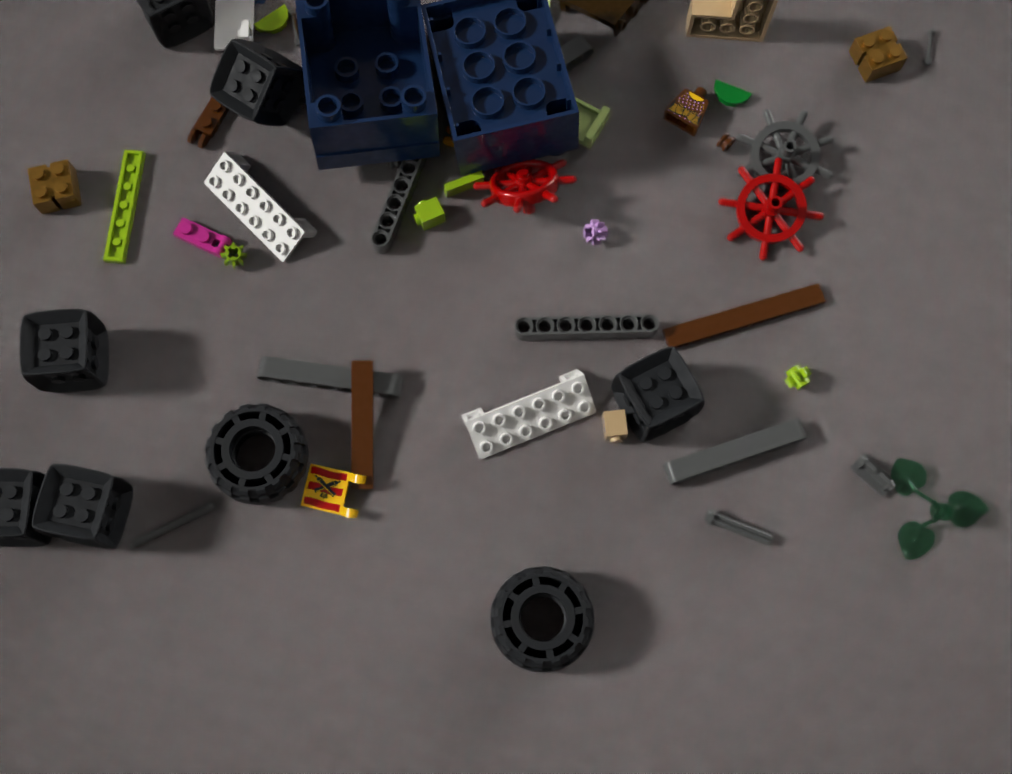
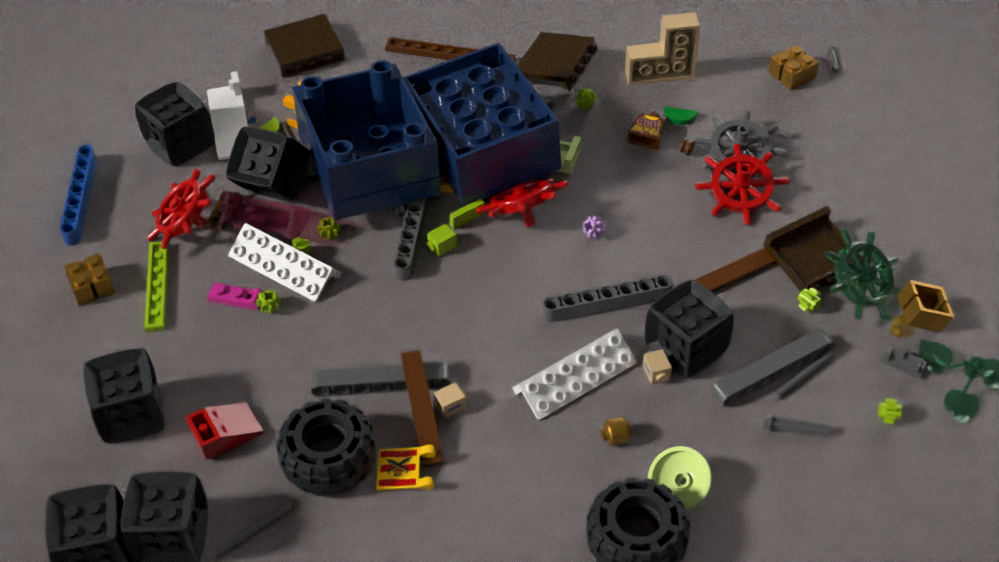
camera: 10 degrees left, 25 degrees down
(59, 69) = (78, 195): none -> blue beam
(160, 119) = (181, 209): none -> red piece
(161, 403) = (222, 428): none -> red slope
(259, 142) = (264, 215): none -> clear pink windscreen
(279, 192) = (302, 245): none -> lime gear
(312, 173) = (328, 228): none -> lime gear
(394, 419) = (450, 400): none -> tan brick
(552, 495) = (616, 431): none -> pearl gold head
(587, 567) = (681, 463): none -> yellowish green dish
(630, 51) = (585, 98): none -> lime gear
(765, 464) = (804, 374): none -> dark grey bar
(822, 317) = (802, 246): none -> dark brown panel
(838, 533) = (889, 411): none -> lime gear
(864, 365) = (864, 274): none -> clear green piece
(884, 423) = (895, 328): none -> clear yellow arm
(911, 413) = (925, 306): none -> pearl gold piece

